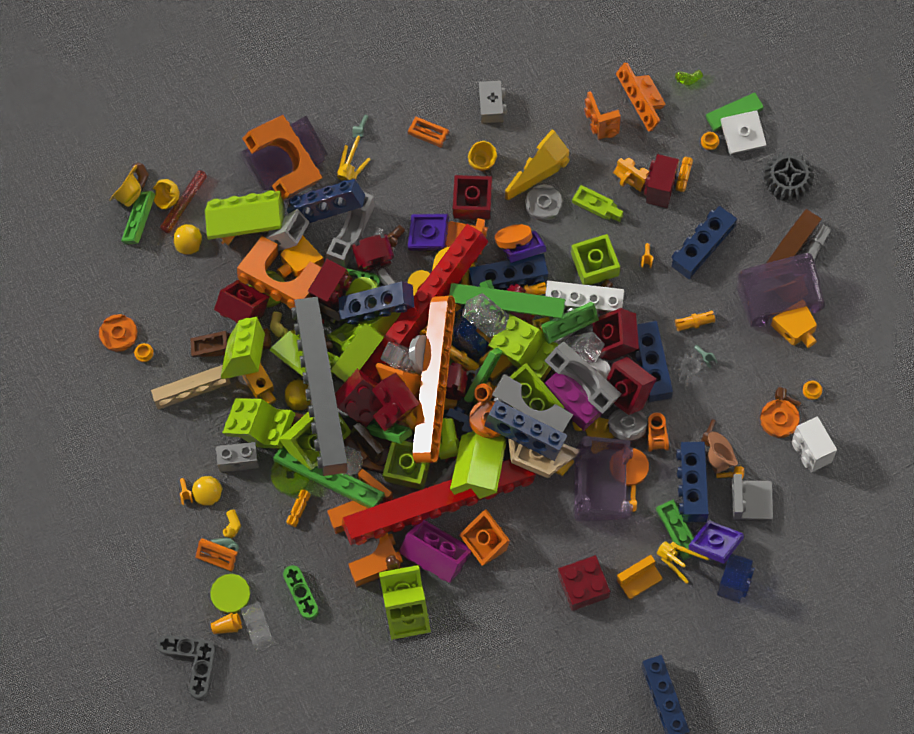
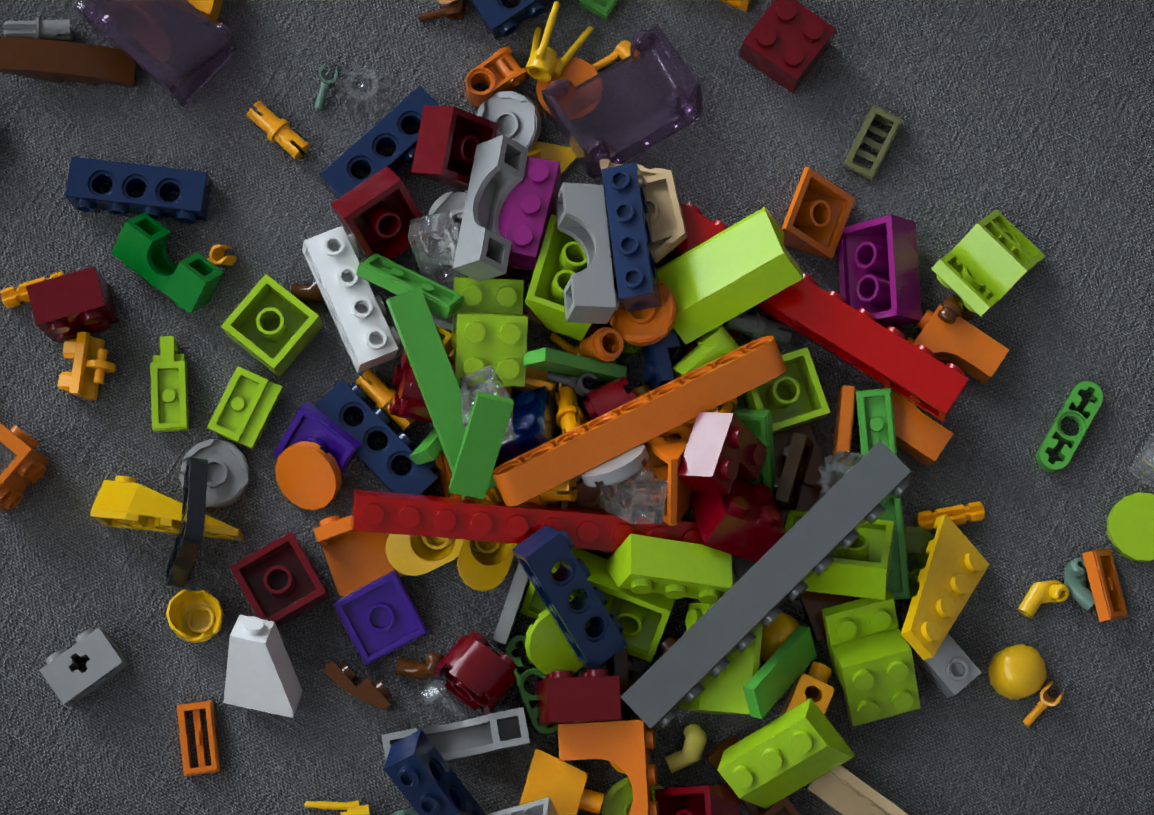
camera: 130 degrees left, 10 degrees up
(269, 479) = (944, 587): none -> yellow wing
(280, 375) = (779, 672): none -> bright green tile
(396, 208) = (366, 691): none -> reddish brown slope
(437, 166) = (260, 669): none -> white slope
(467, 295) = (481, 445): none -> bright green tile
(512, 605) = (885, 118): none -> olive slope
(525, 172) = (192, 523): none -> black beam
(565, 230) = (245, 408): none -> lime plate
(648, 458) = (543, 59): none -> yellow plant
(668, 227) = (143, 249): none -> green arch

